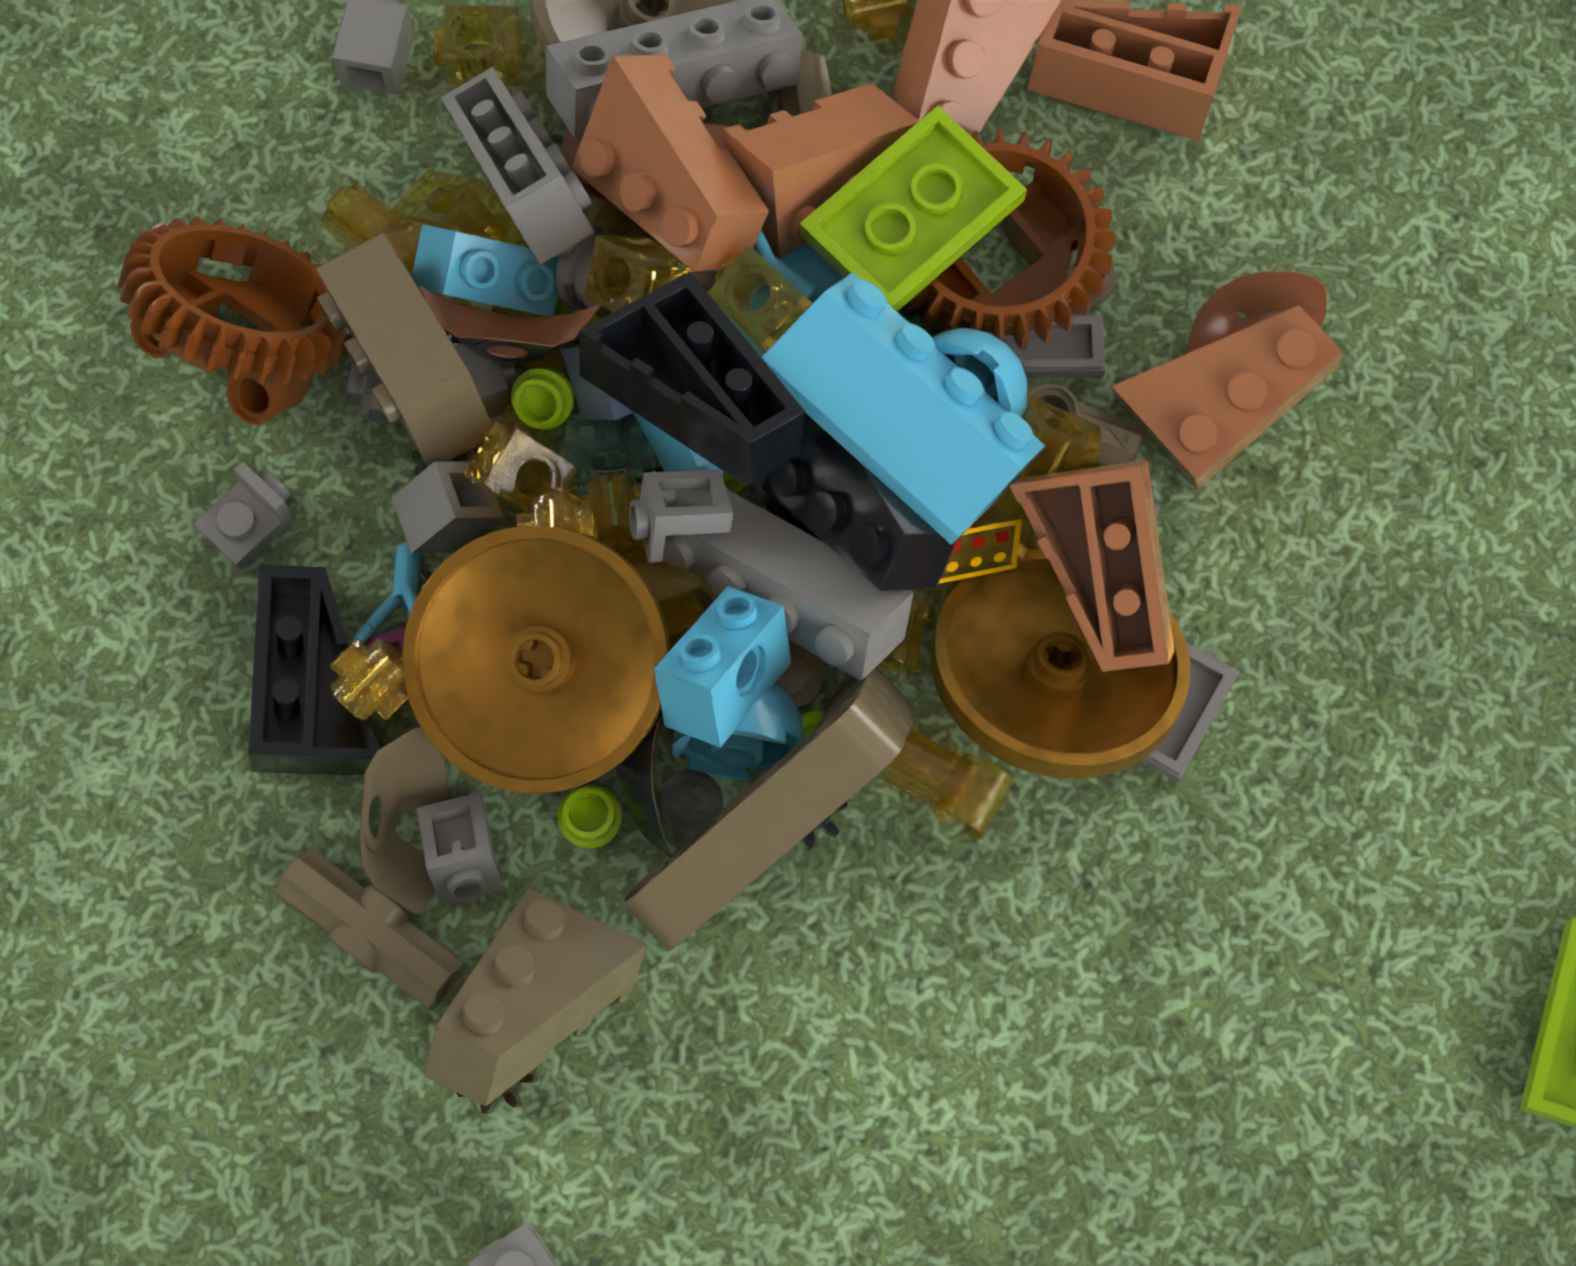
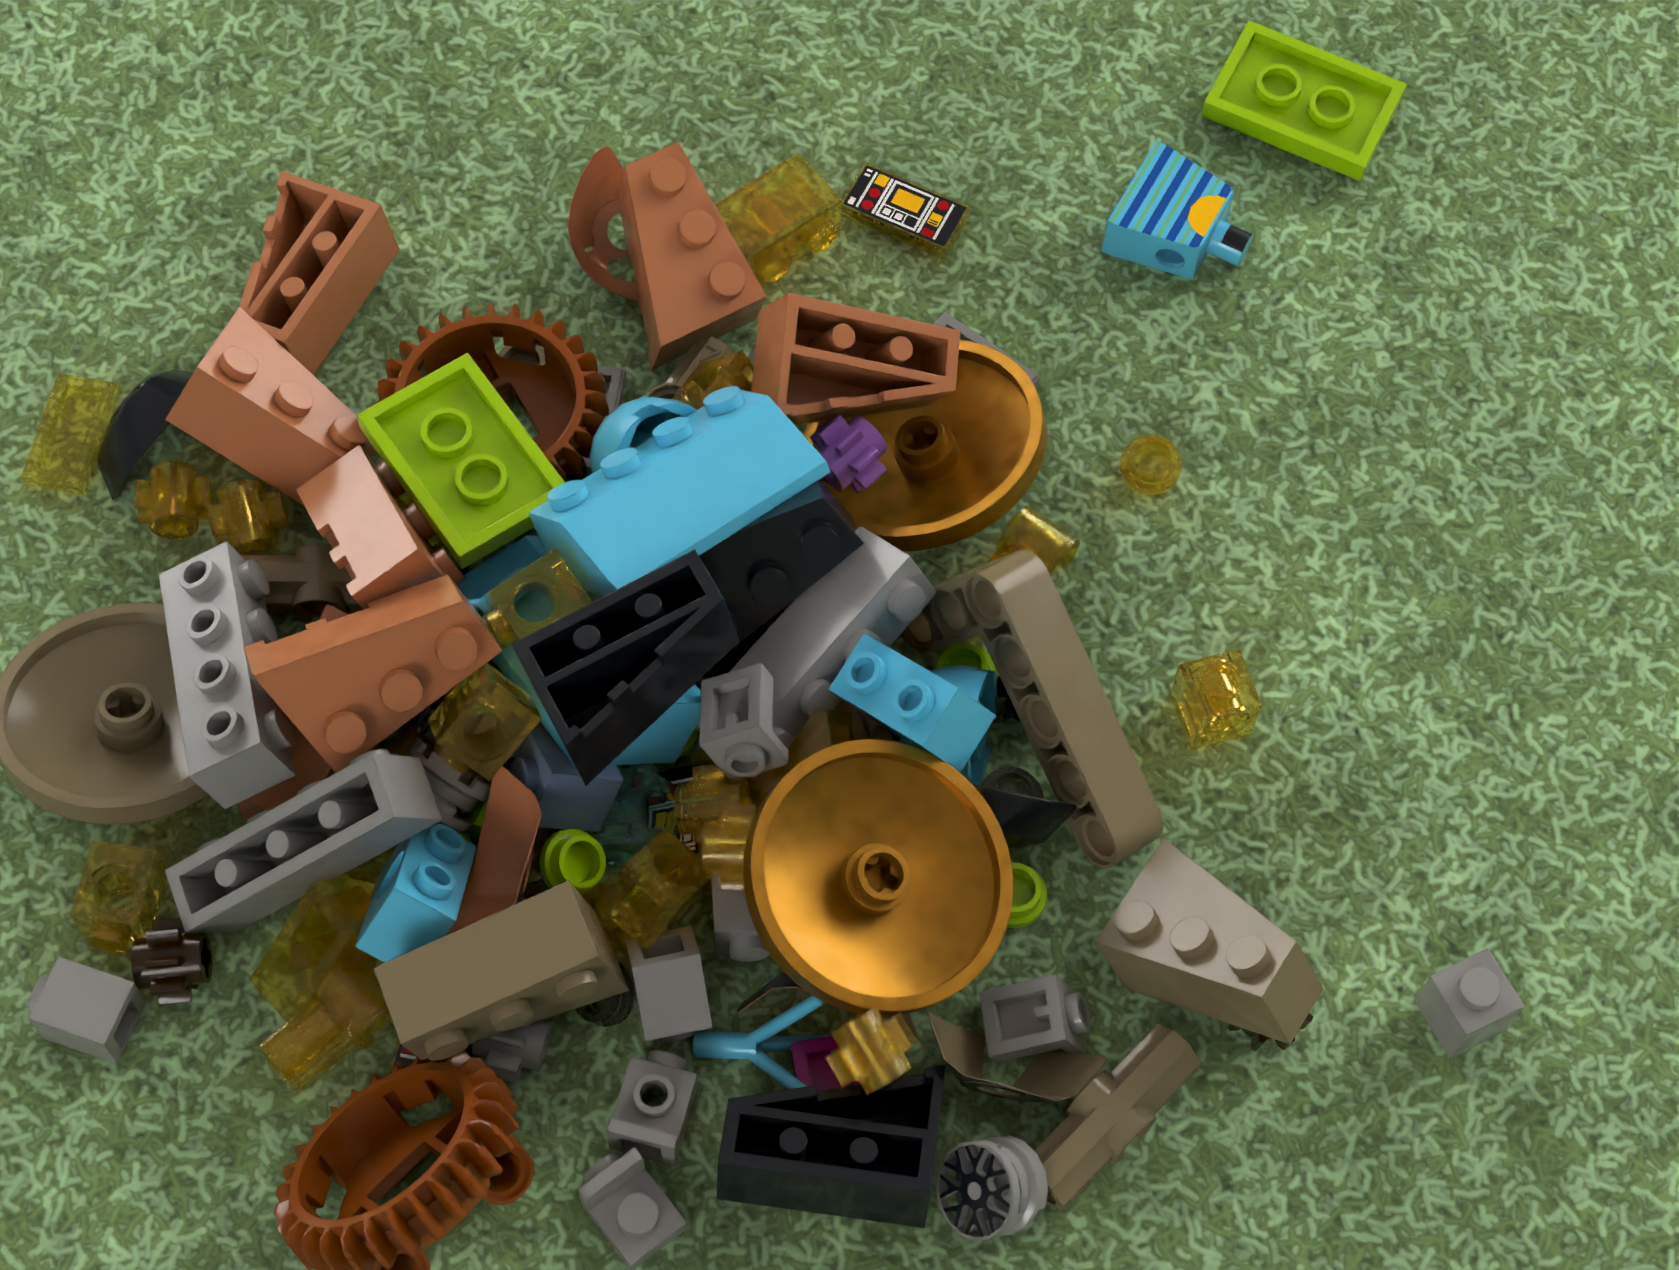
camera: 85 degrees left, 10 degrees down
(281, 824) = (995, 1185): none -> light grey wheel
(346, 537) = (659, 1129): none -> light grey brick
(418, 98) = (171, 961): none -> dark brown gear
(819, 988) = (1215, 699): none -> clear yellow brick
(867, 60) = (247, 516): none -> clear yellow gear
(1015, 580) = (850, 452): none -> medium lavender gear
(1096, 905) = (1150, 465): none -> clear yellow plate
(1306, 482) = (782, 217): none -> clear yellow brick
(1360, 616) = (904, 211): none -> tile
(1410, 898) = (1174, 217): none -> medium azure torso

